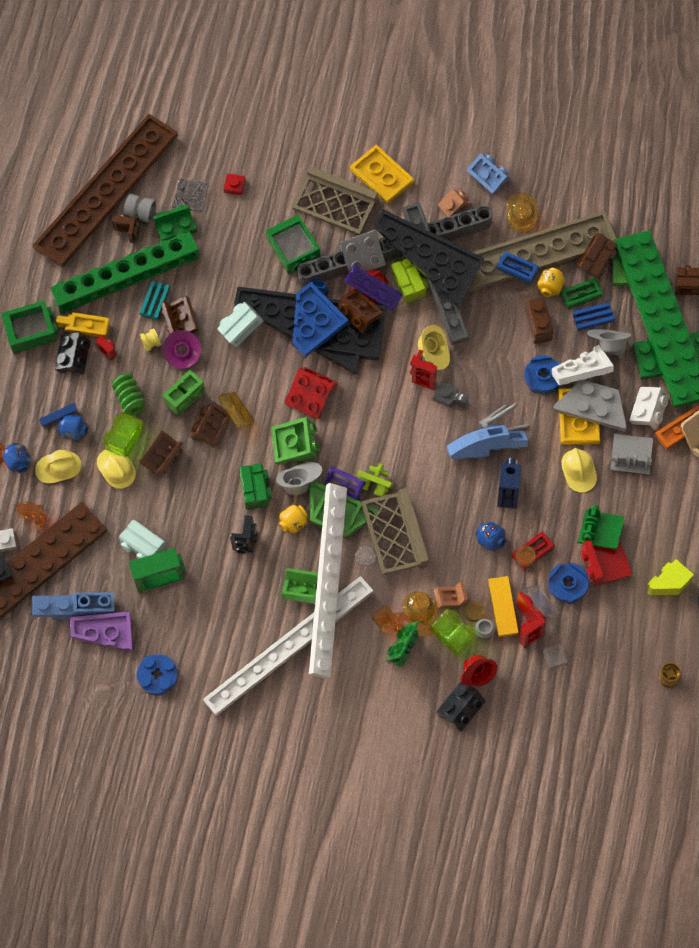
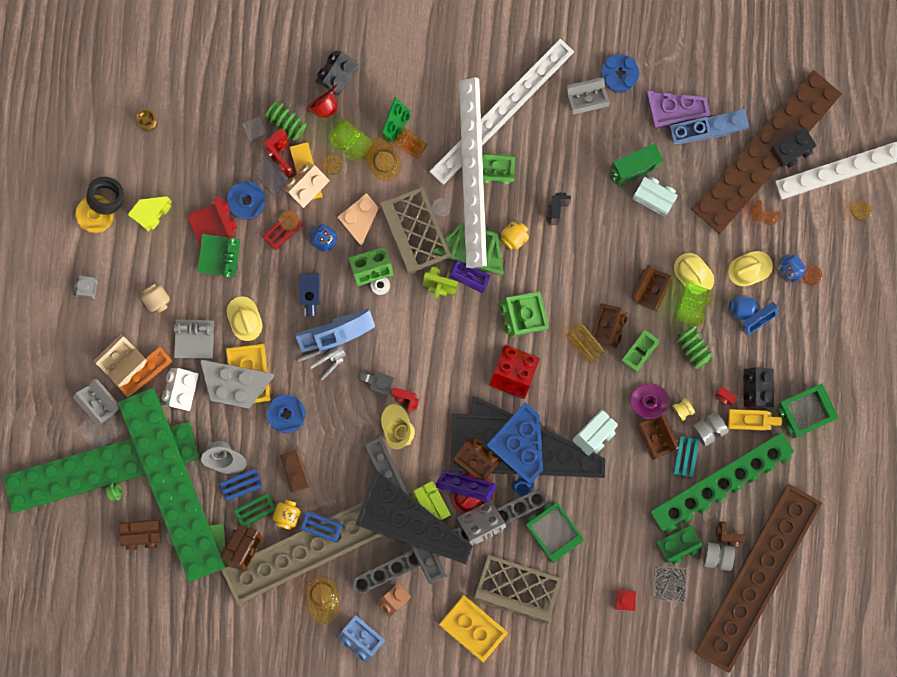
camera: 165 degrees right, 15 degrees up
(128, 318) = (709, 429): none -> light grey wheel
(195, 650) = (587, 96): none -> light grey bracket
(254, 486) = (556, 264): green brick -> none
(297, 479) = (514, 275): light grey piece -> none
(437, 491) = (380, 291): none -> white plate
(444, 496) = (371, 266): none -> bright green brick
(451, 555) = (359, 218): none -> light nougat wing
(451, 596) = (356, 174): nougat bracket -> none
(484, 628) = (321, 148): light grey plate -> none
(504, 588) = (306, 184): none -> bracket
(519, 657) = (285, 121): none -> bright green piece
(585, 367) = (245, 421): white wing -> none
(669, 494) = (155, 298): none -> tan head

